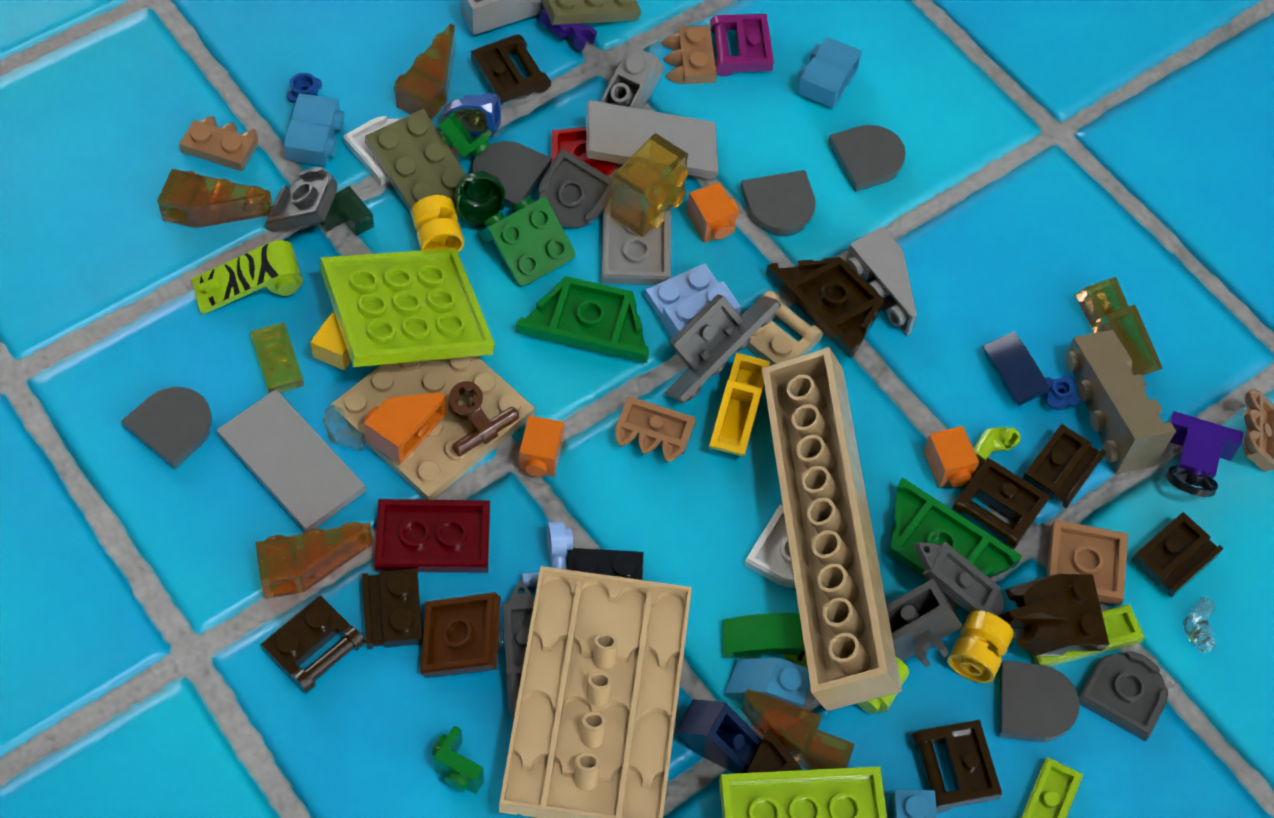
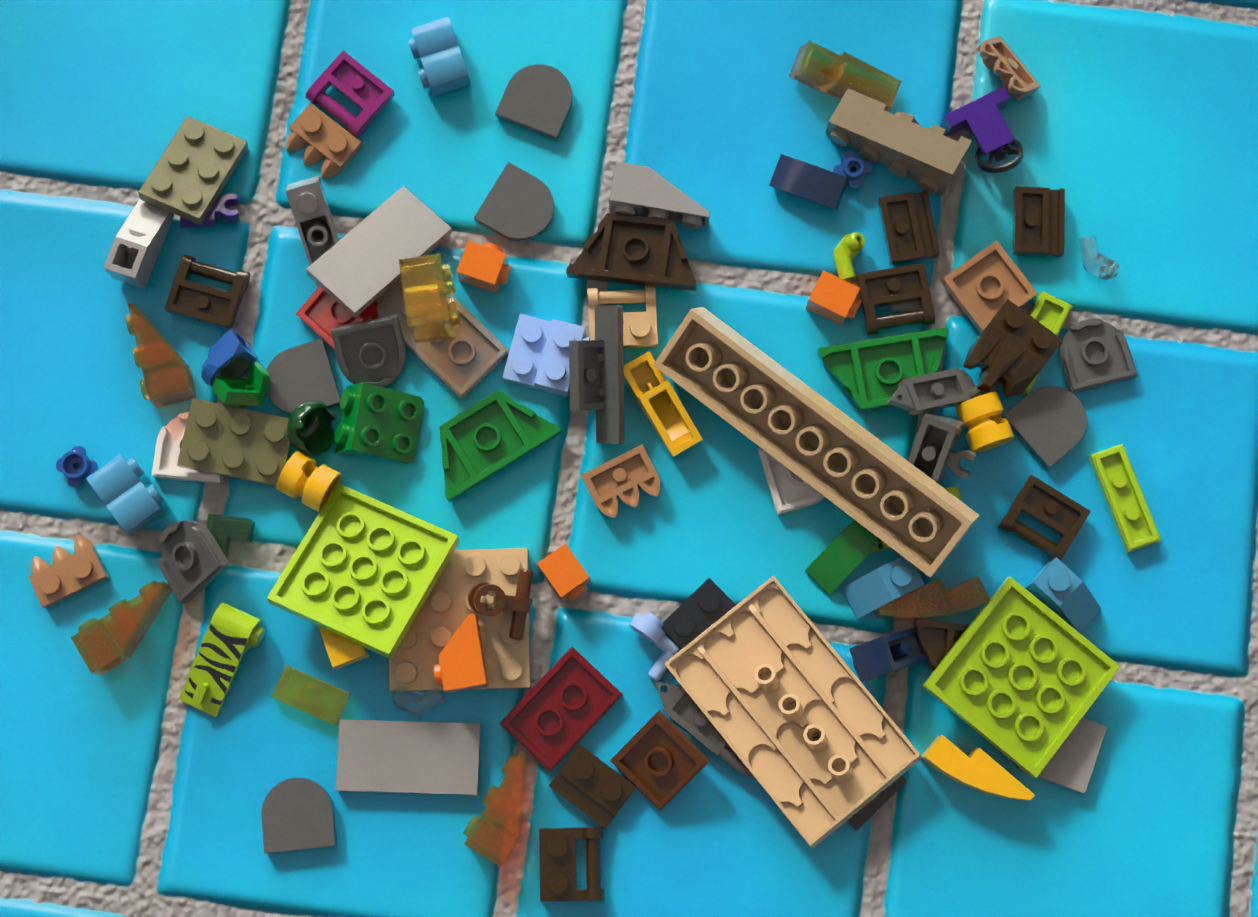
camera: 40 degrees left, 20 degrees up
(457, 770) = (757, 849): green bracket -> none

